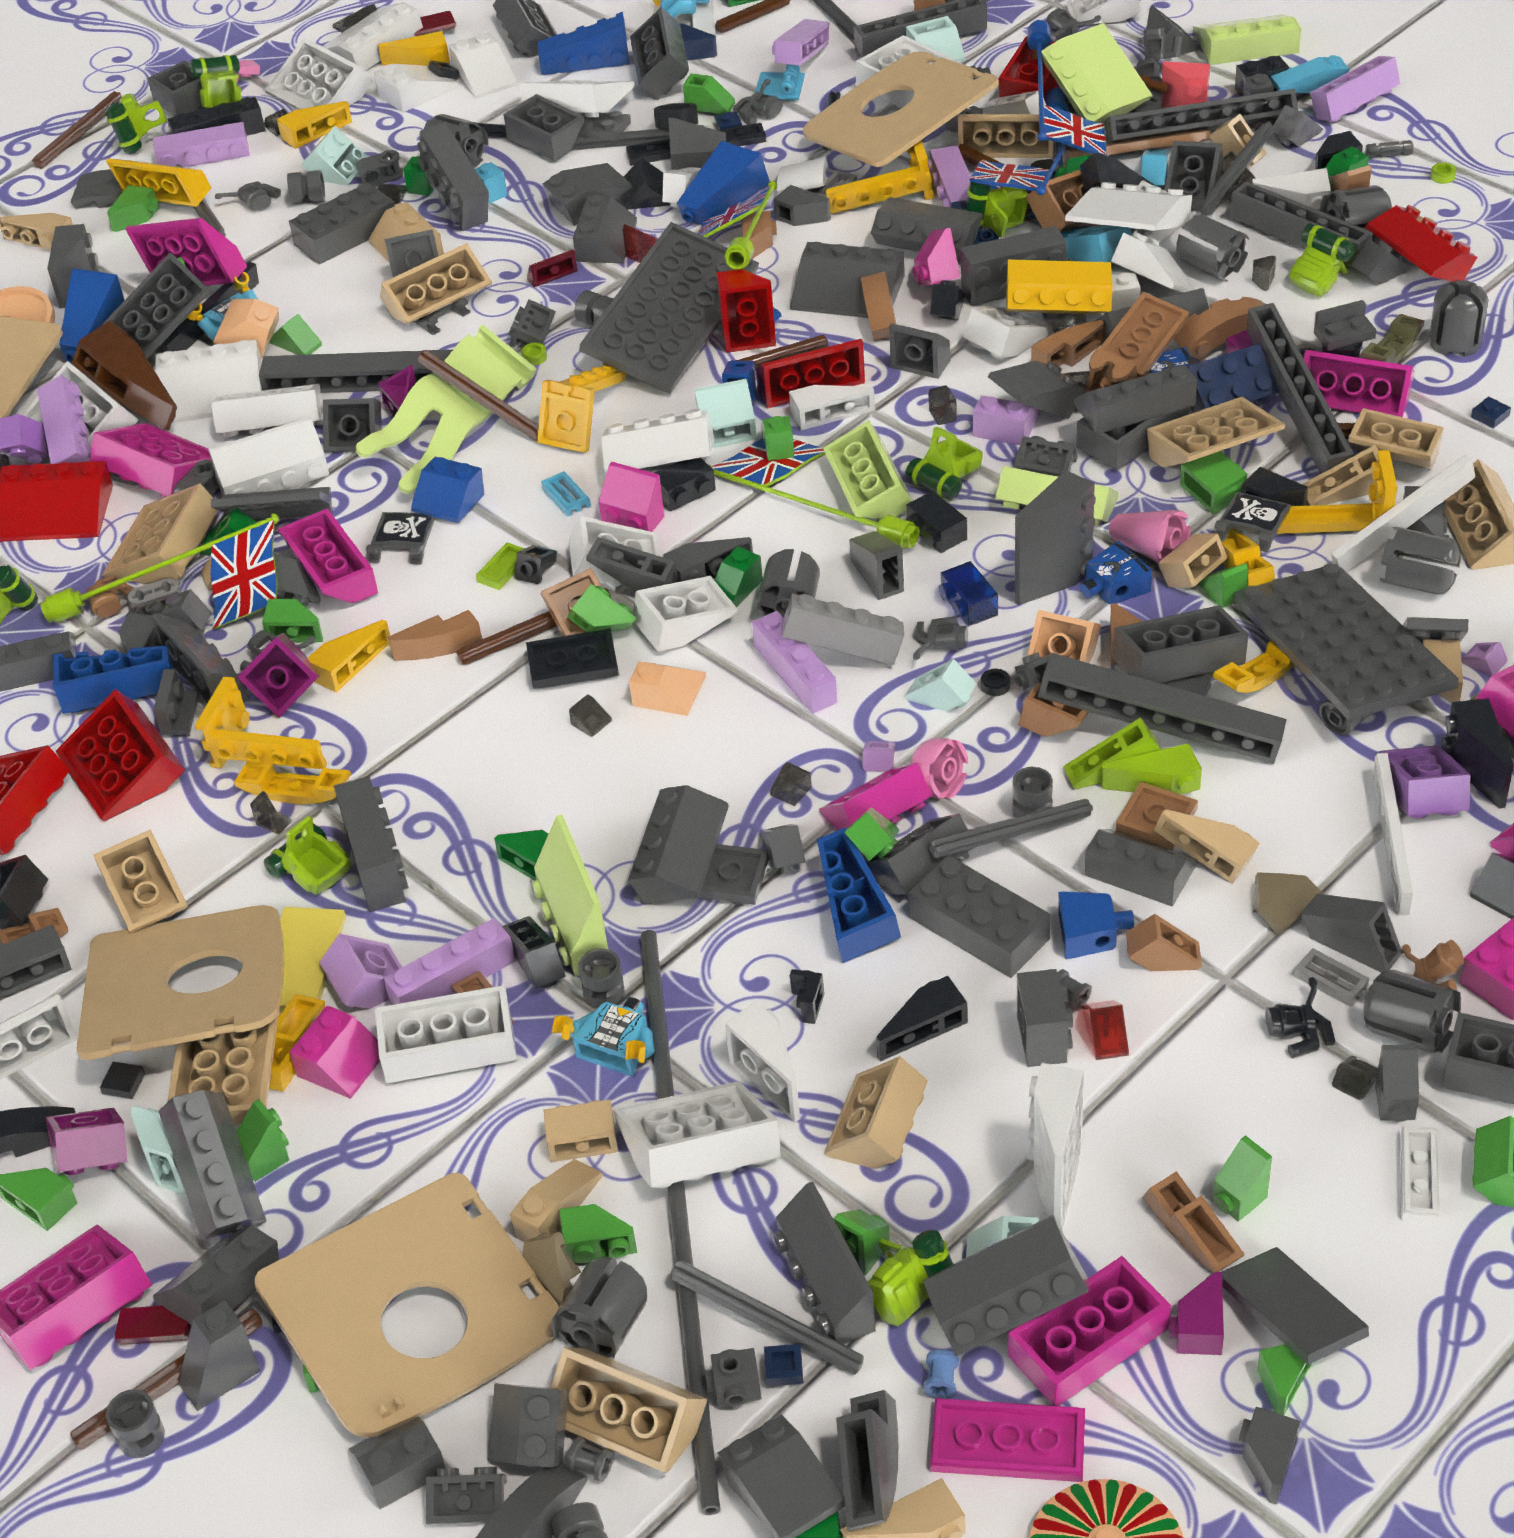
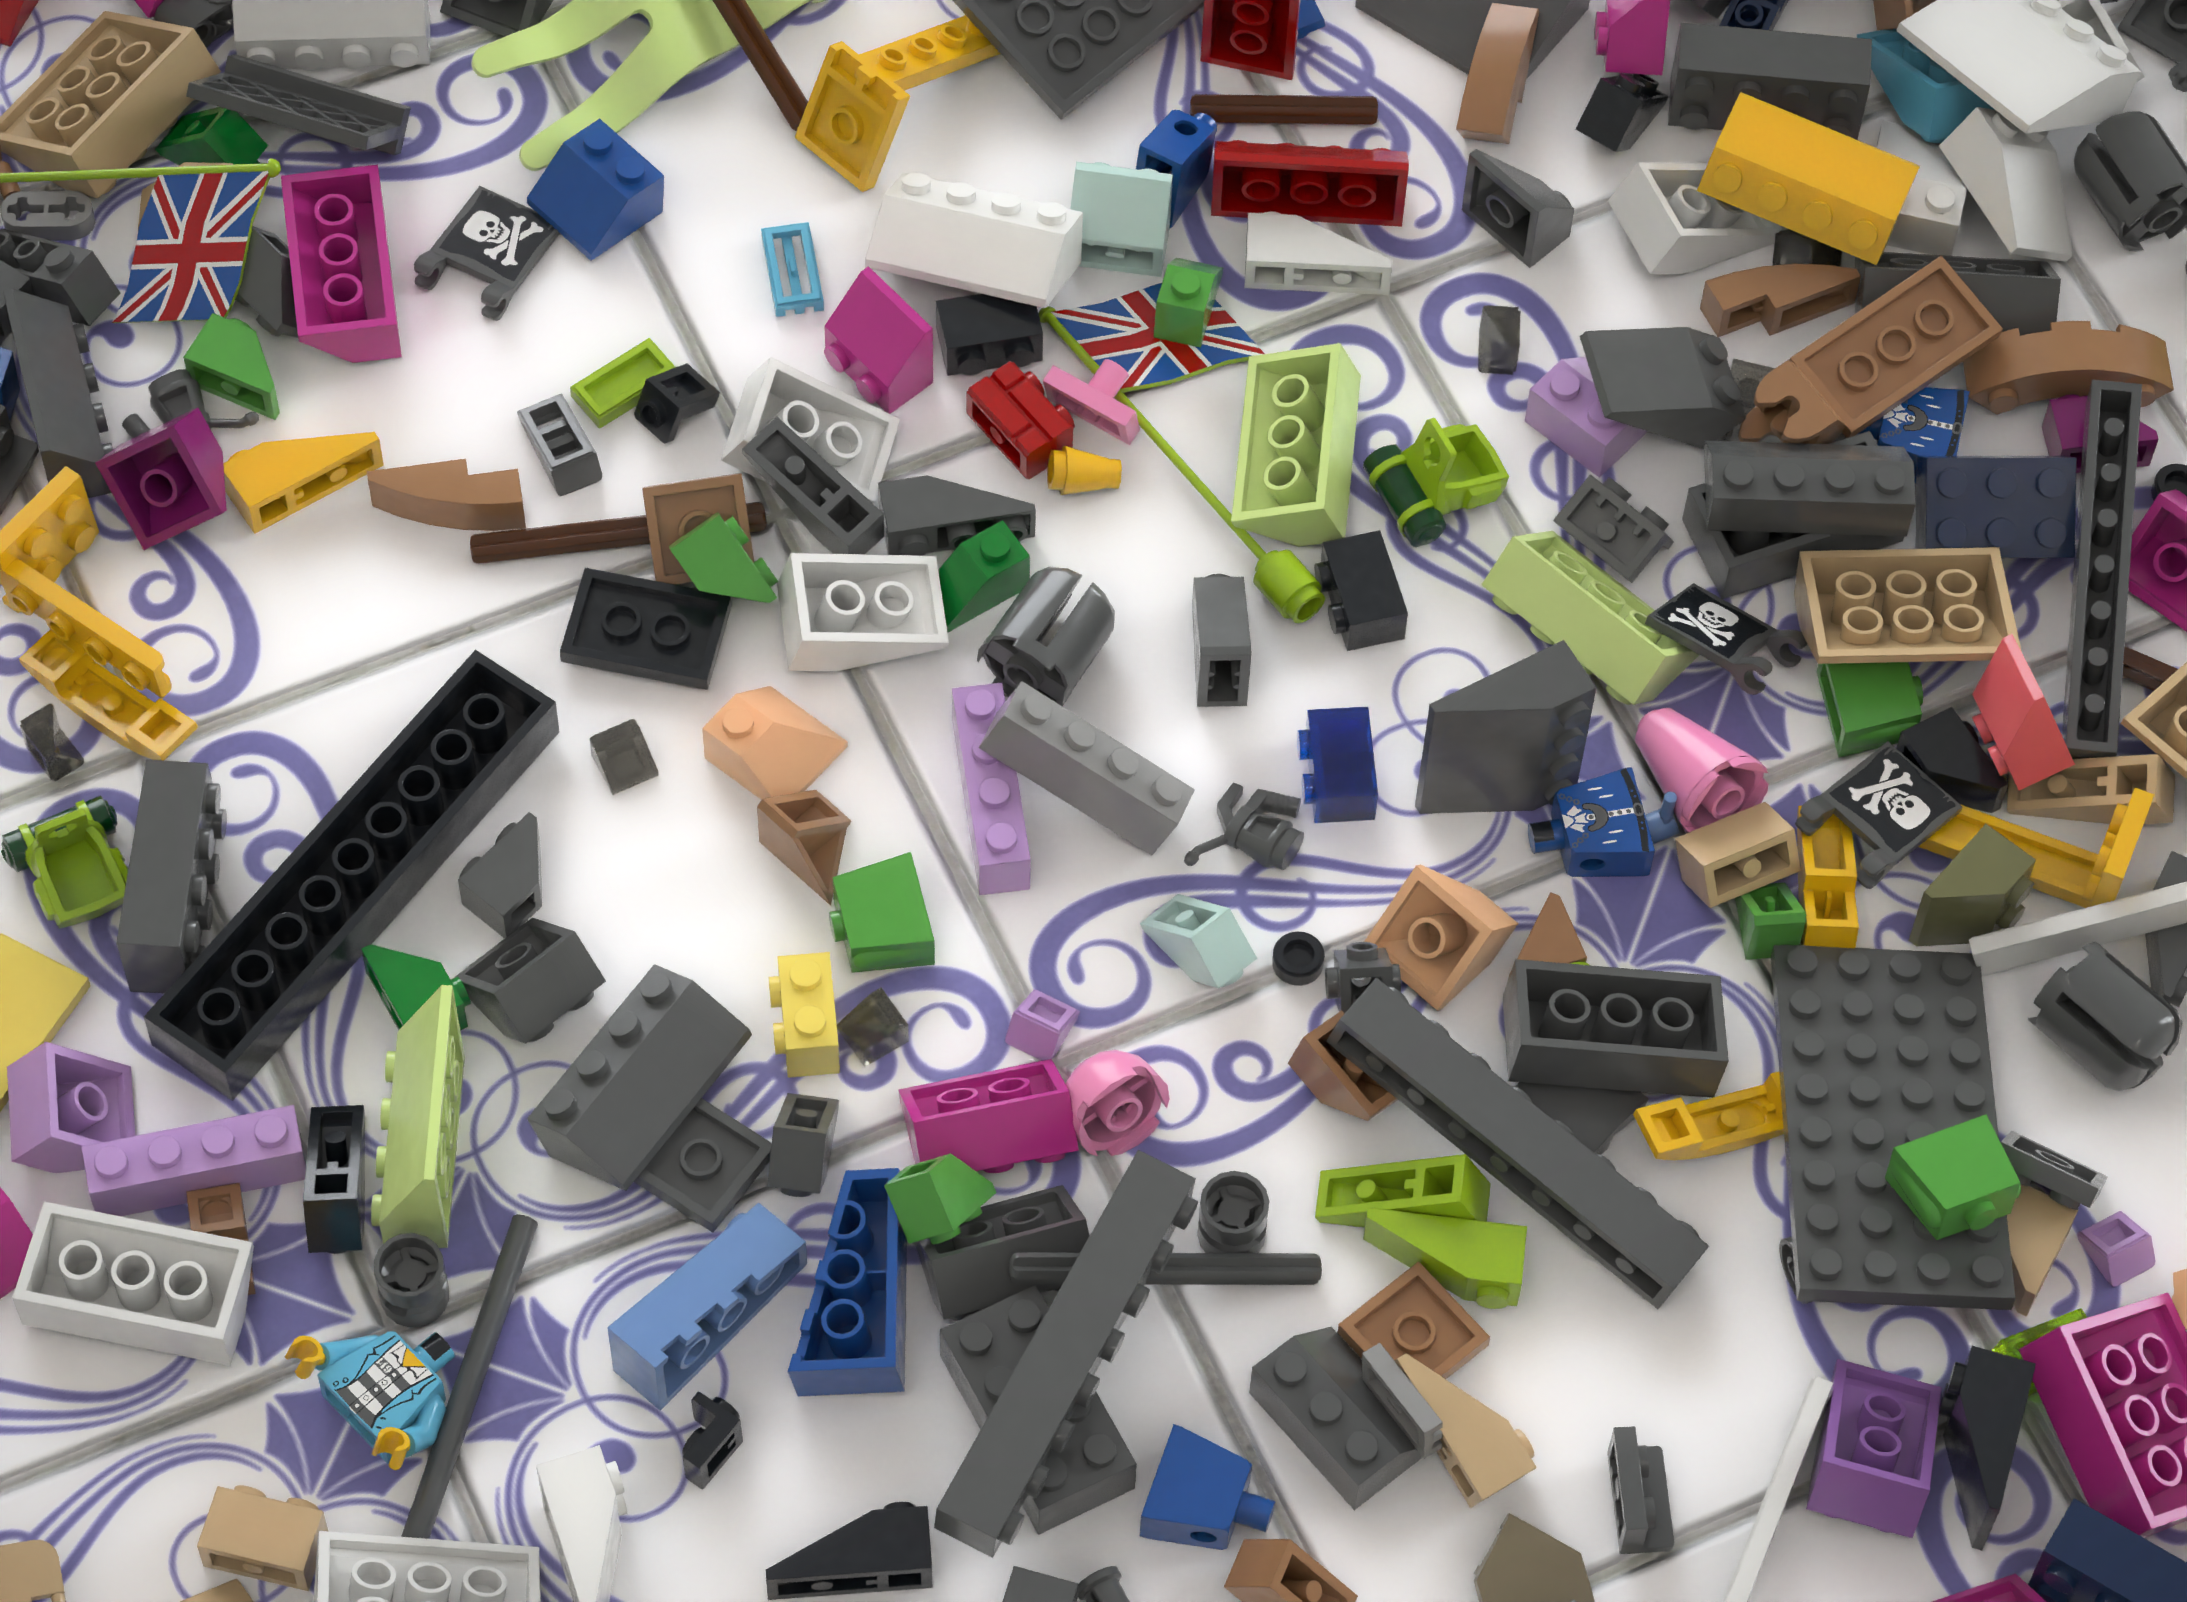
camera: 15 degrees right, 15 degrees up
(469, 813) = (352, 875): none -> black brick
(486, 602) = (569, 470): none -> dark grey slope
(556, 788) = (506, 881): none -> dark grey slope
(598, 822) = (532, 979): none -> dark grey slope
(705, 719) = (805, 836): none -> medium nougat slope
(720, 511) = (1019, 418): none -> red brick
(753, 788) = (808, 1014): none -> light yellow brick
(754, 491) = (1095, 400): none -> bright pink tile
(762, 522) = (1081, 471): none -> yellow cone
(769, 734) = (882, 916): none -> bright green torso
(770, 934) = (704, 1304): none -> medium blue wedge
(986, 873) = (1065, 1354): none -> dark grey brick
(1131, 478) = (1725, 635): none -> flag
(1146, 557) = (1661, 821): none -> medium blue hand
(1173, 836) = (1402, 1400): none -> light grey tile
(1299, 450) = (2018, 719): none -> coral slope
(1316, 840) = (1639, 1494): none -> dark grey bracket
(1322, 532) = (1975, 892): none -> olive slope
(1396, 636) = (1955, 1178): none -> bright green torso

